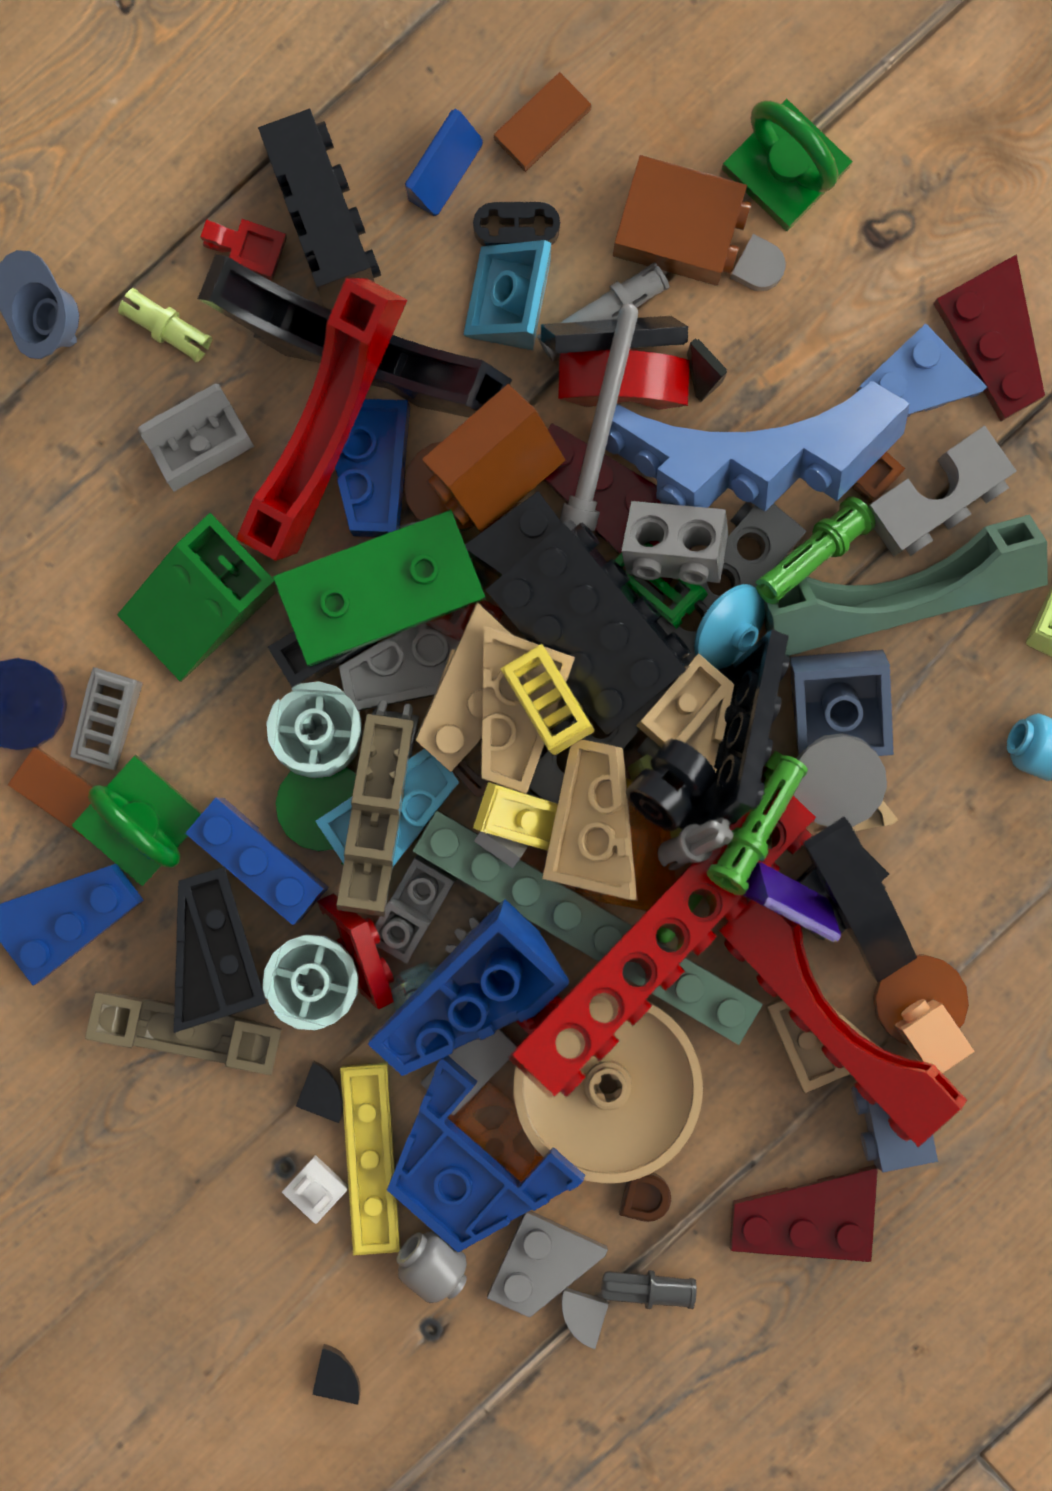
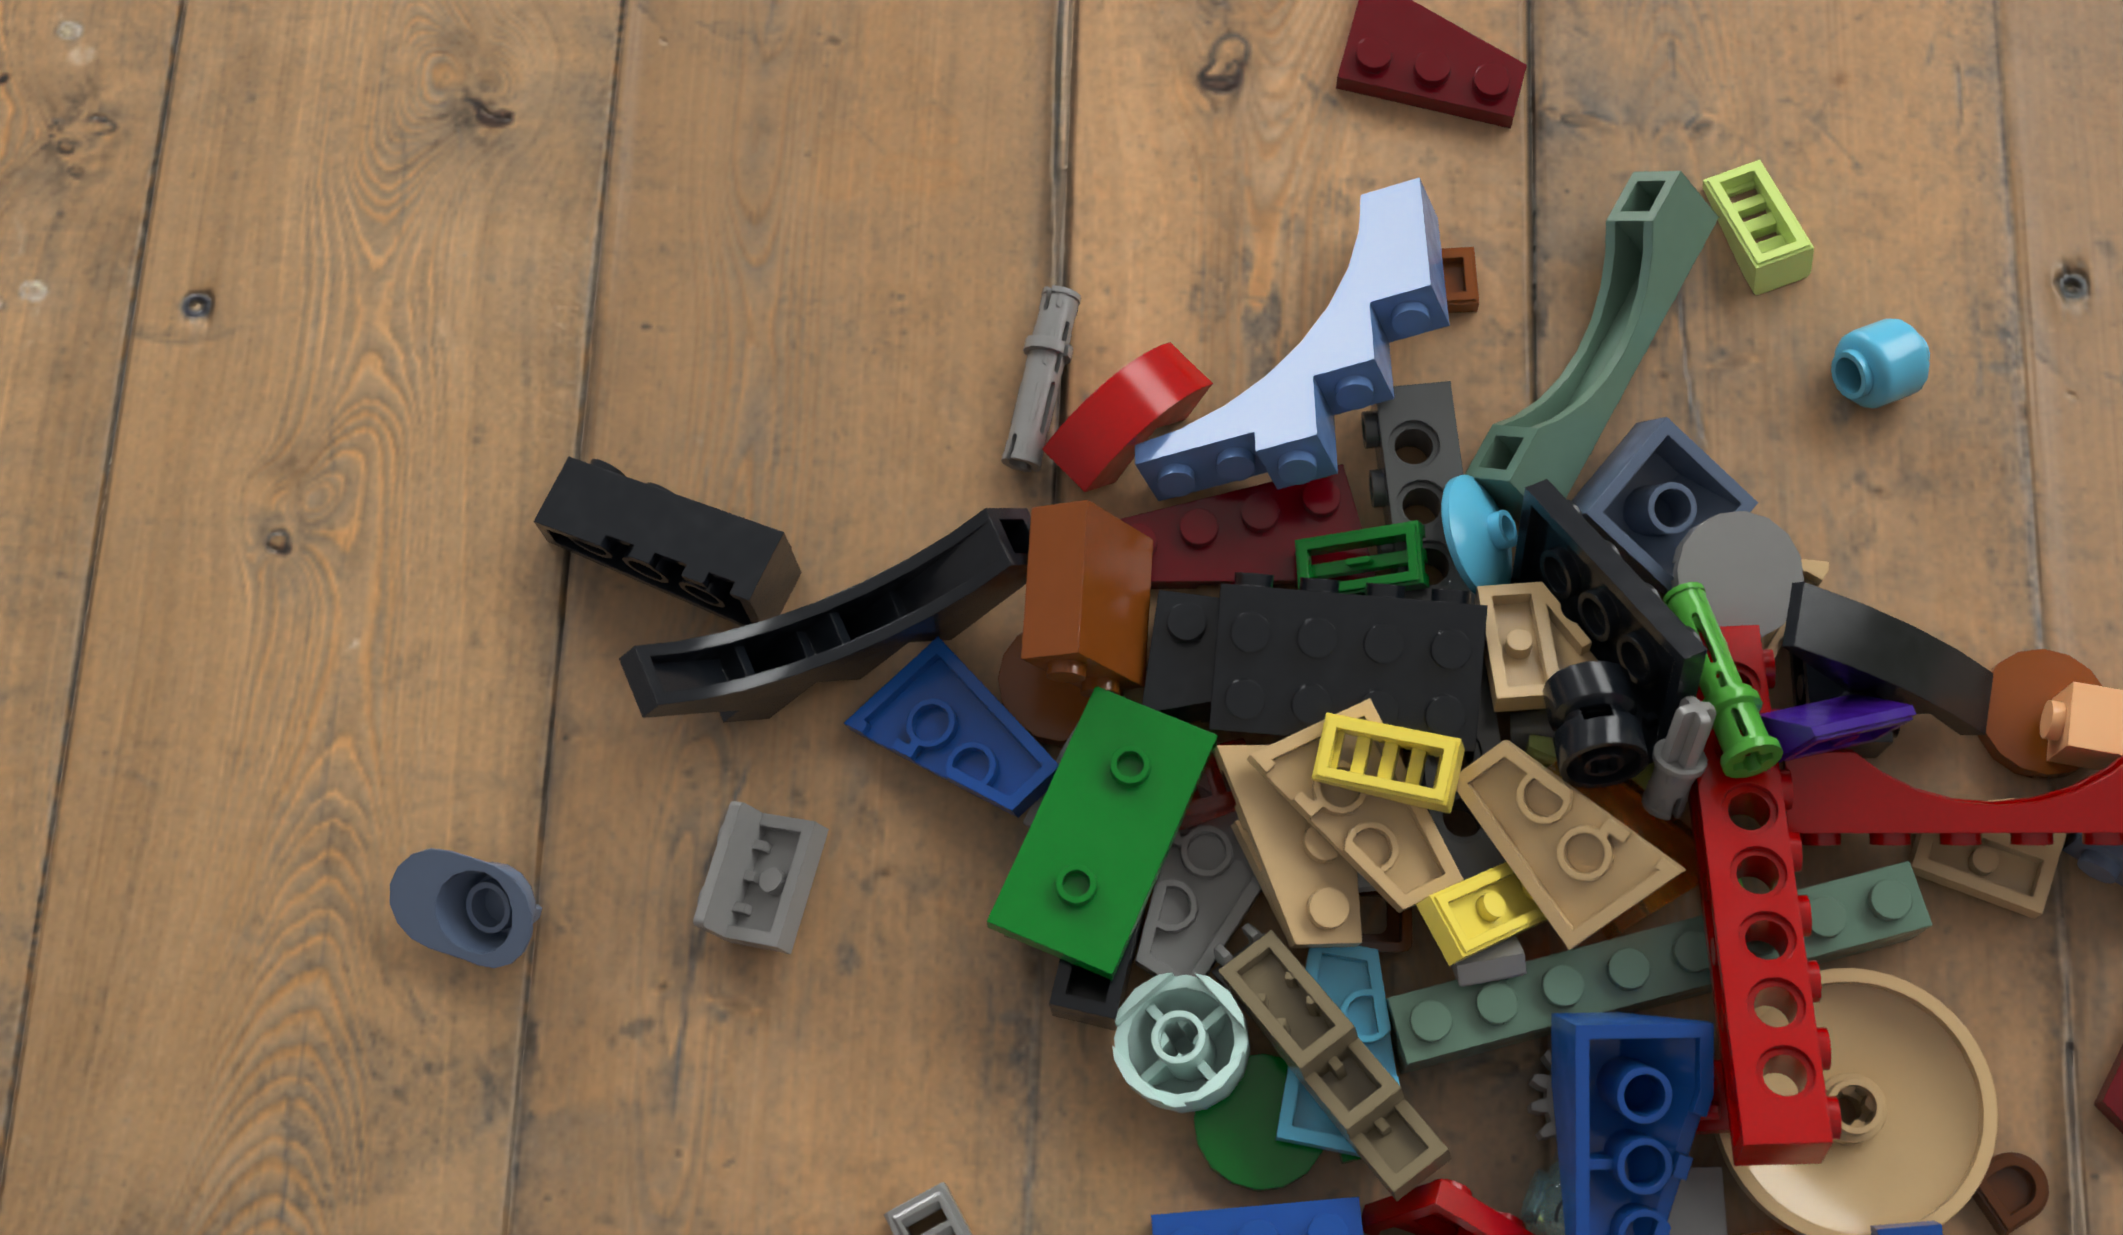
camera: 40 degrees left, 15 degrees down
(165, 324) = (618, 802): yellowish green pin -> none
(197, 597) = (921, 1034): green slope -> none
(252, 245) = (634, 627): red plate -> none
(350, 358) = (899, 775): red arch -> none
(413, 907) = (1458, 1113): light grey slope -> none
(443, 163) = (748, 392): blue slope -> none
(509, 293) = (935, 445): medium azure slope -> none
(515, 214) = (866, 372): black beam -> none
(542, 121) = (804, 270): dark orange tile -> none
(582, 506) = (1212, 566): light grey piece -> none
(599, 334) = (1076, 383): black tile -> none
(677, 530) = (1335, 493): light grey brick -> none
(681, 220) = (1030, 229): dark orange brick -> none
(705, 369) = (1194, 335): pearl dark grey slope -> none
(759, 265) = (1143, 201): light grey tile -> none
(785, 162) = (1072, 87): green tile -> none
(828, 539) = (1477, 372): bright green pin -> none
(926, 373) = (1398, 146): medium blue wing -> none
(973, 469) = (1525, 284): light grey arch -> none

